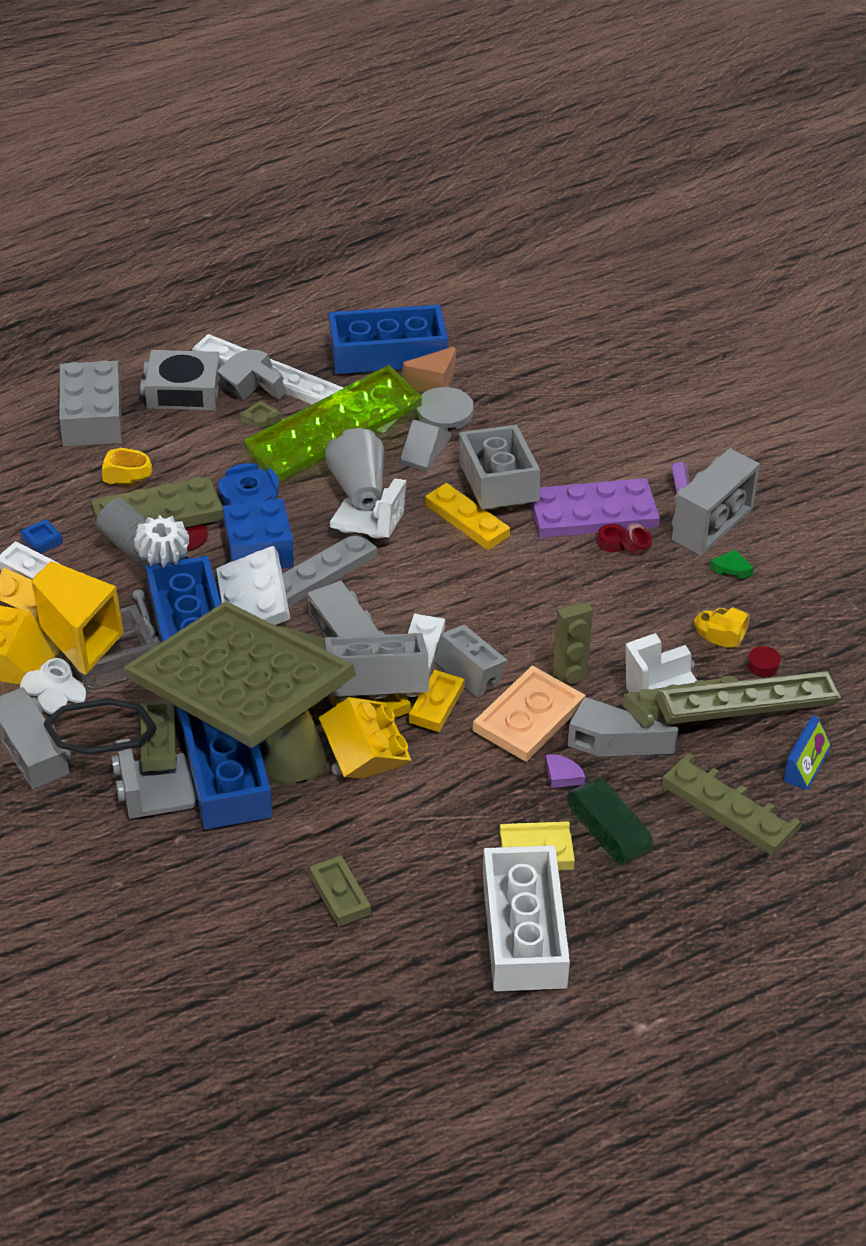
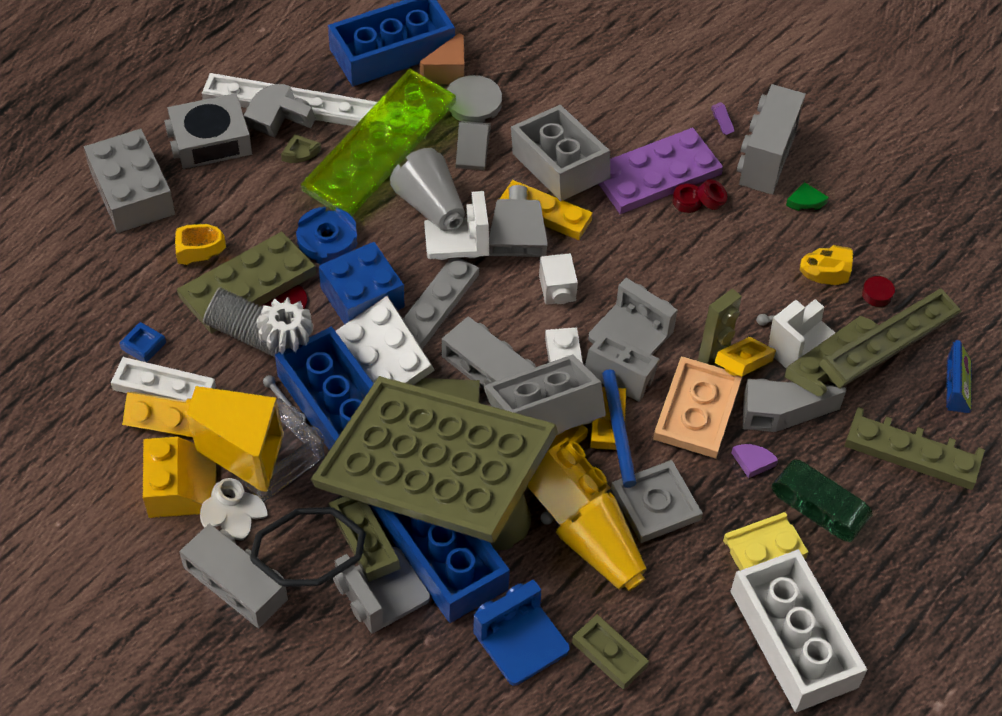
camera: 20 degrees left, 10 degrees up
(261, 849) = (519, 633): none -> blue bracket
(376, 794) = (605, 542): none -> yellow cone
(427, 520) = (518, 226): none -> light grey torso
(438, 709) = (619, 429): none -> blue bar
(446, 574) = (558, 279): none -> white brick
(447, 780) = (657, 502): none -> light grey plate
(510, 626) = (637, 318): none -> light grey bracket
(594, 680) = (744, 356): none -> yellow plate

